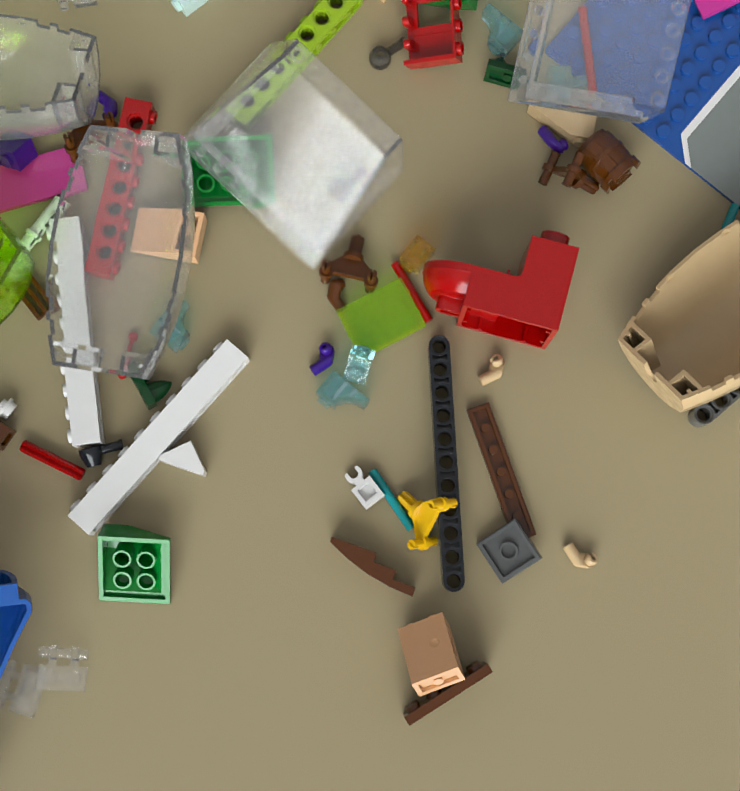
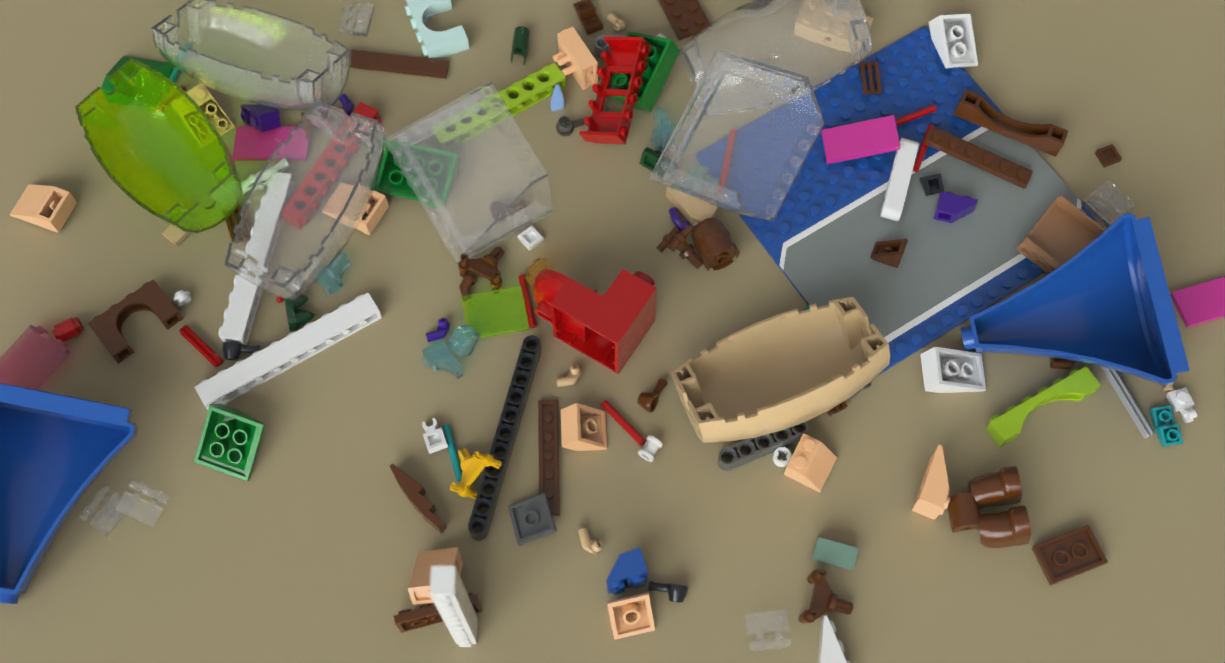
camera: 20 degrees right, 15 degrees down
(152, 30) = (399, 64): none -> reddish brown tile
(186, 458) = (302, 372): white slope -> none
(362, 25) = (557, 99): none -> light blue slope
(388, 211) = (530, 238): none -> white tile
(494, 710) = (454, 604): none -> white brick
(529, 428) = (583, 428): none -> light nougat slope
(570, 406) = (622, 422): none -> red bar
(591, 371) = (649, 400): none -> reddish brown bar
(612, 428) = (650, 448): none -> white bush
(636, 581) = (627, 572): none -> blue slope
(653, 627) = (630, 615): none -> light nougat slope
(693, 584) = (675, 592): none -> black bar

